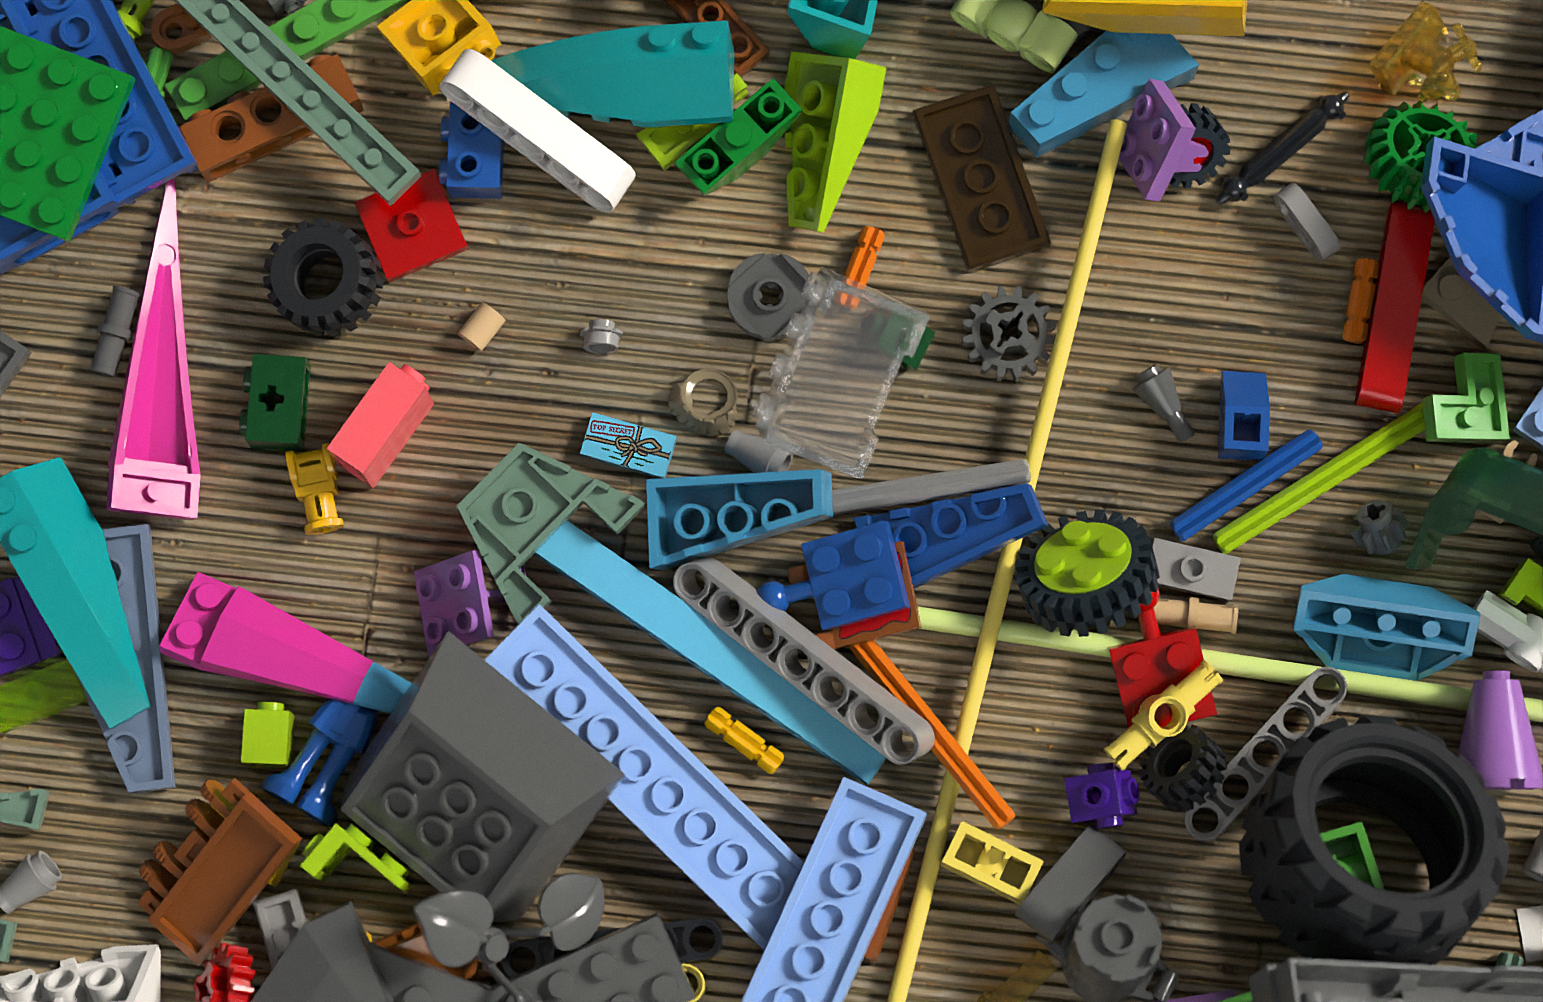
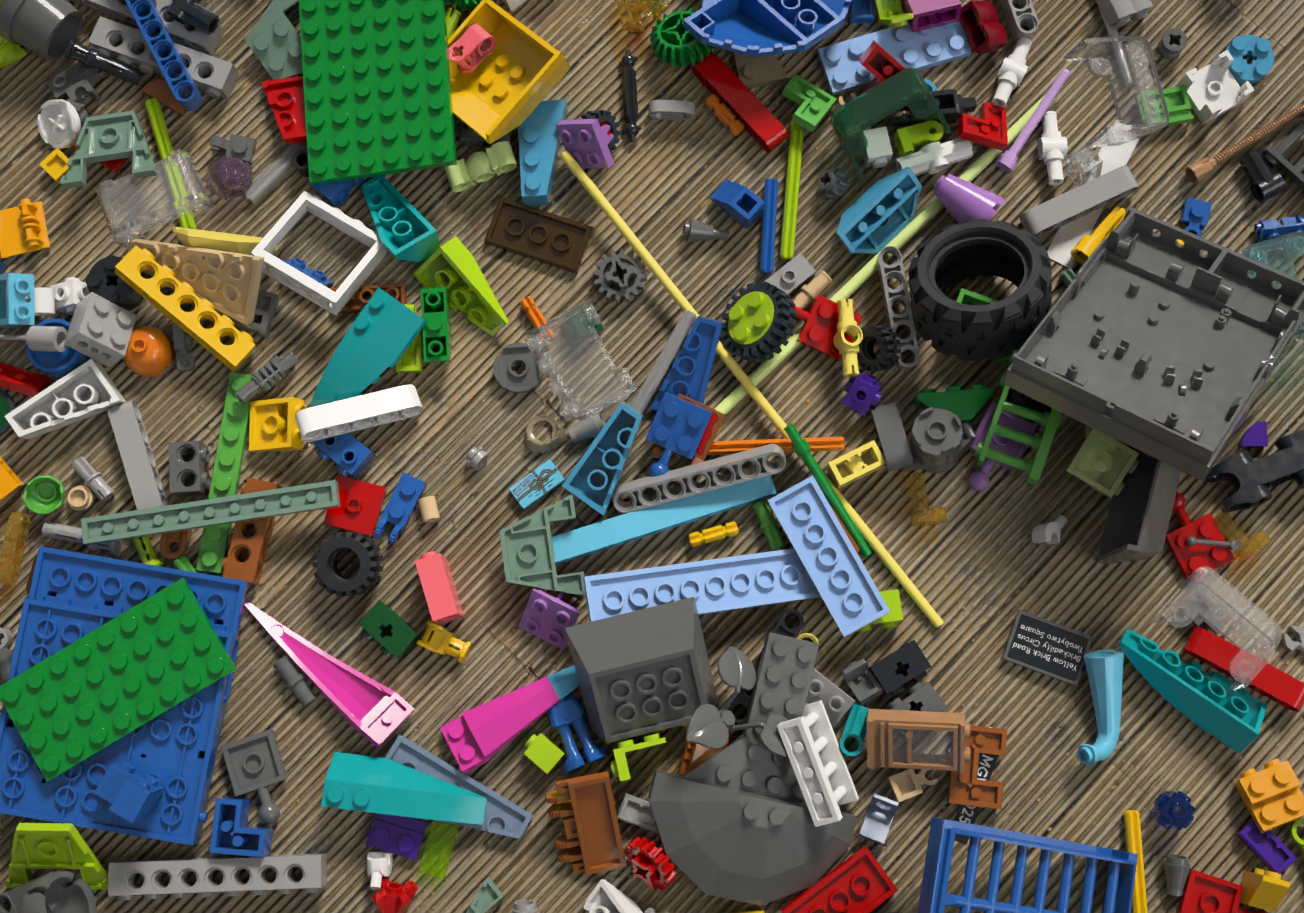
camera: 50 degrees left, 0 degrees up
(456, 287) = (400, 507): none -> blue hinge
(814, 808) = (769, 525): none -> bright green axle
(952, 768) = (802, 449): none -> green bar
(1190, 938) = (960, 402): none -> green slope
(1481, 549) = (879, 148): none -> white brick

